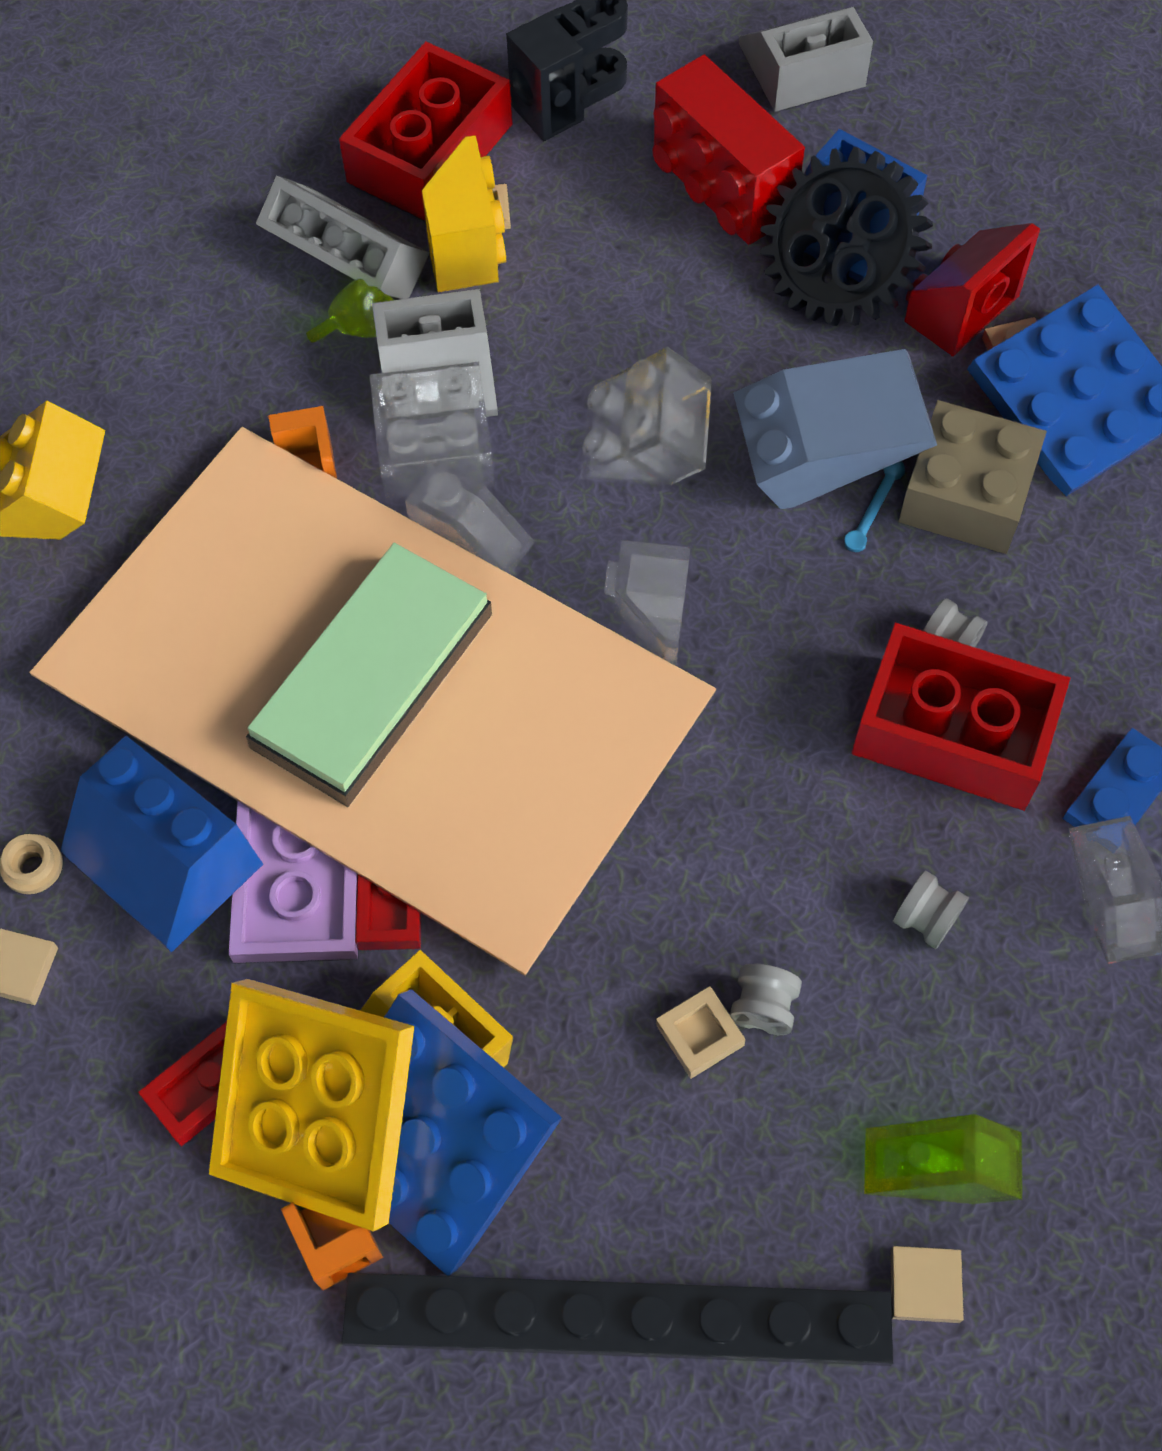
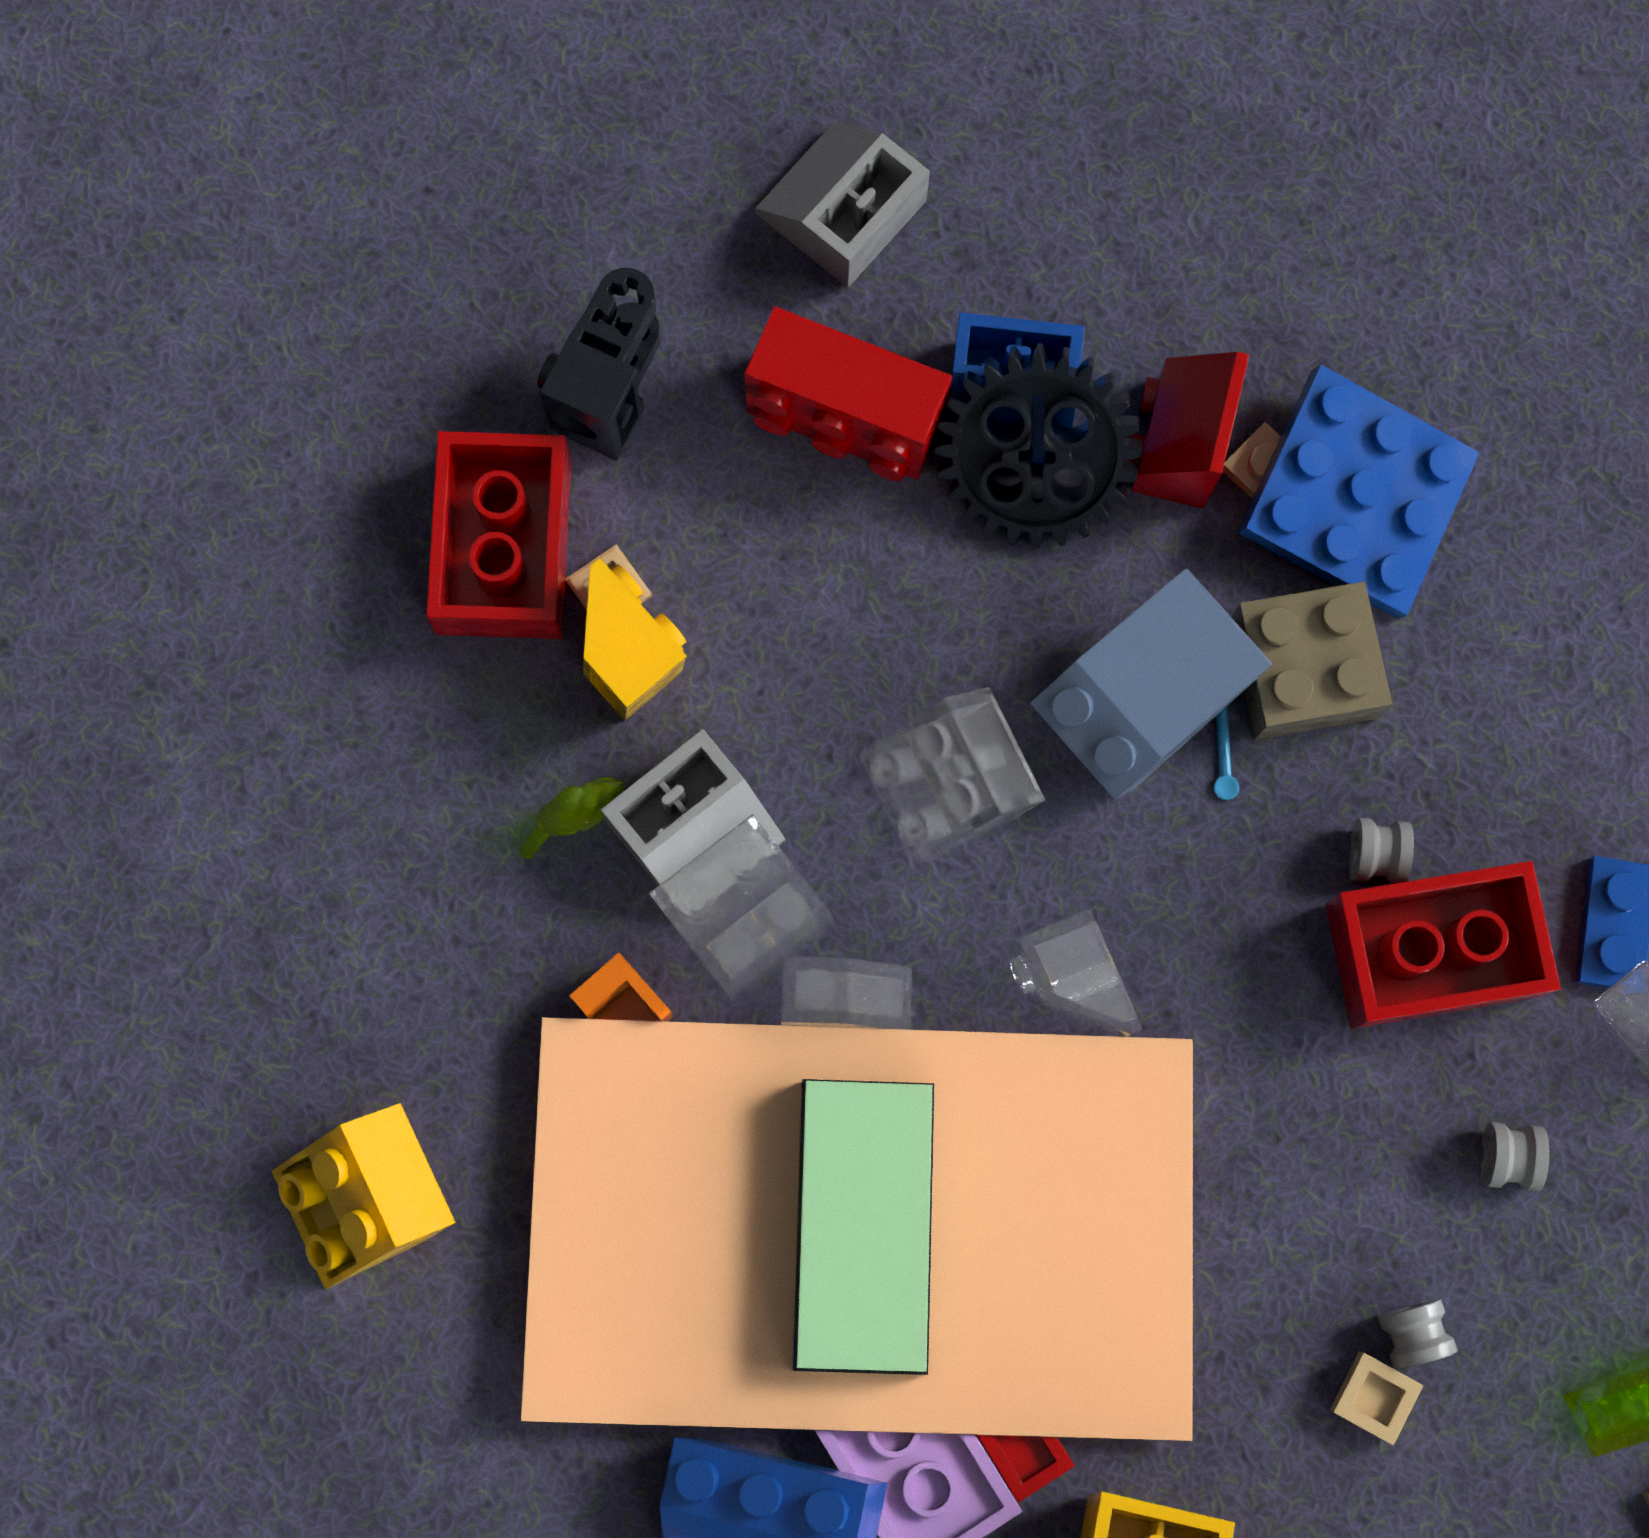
camera: 35 degrees left, 15 degrees up
(342, 238) = (496, 728): light grey brick -> none

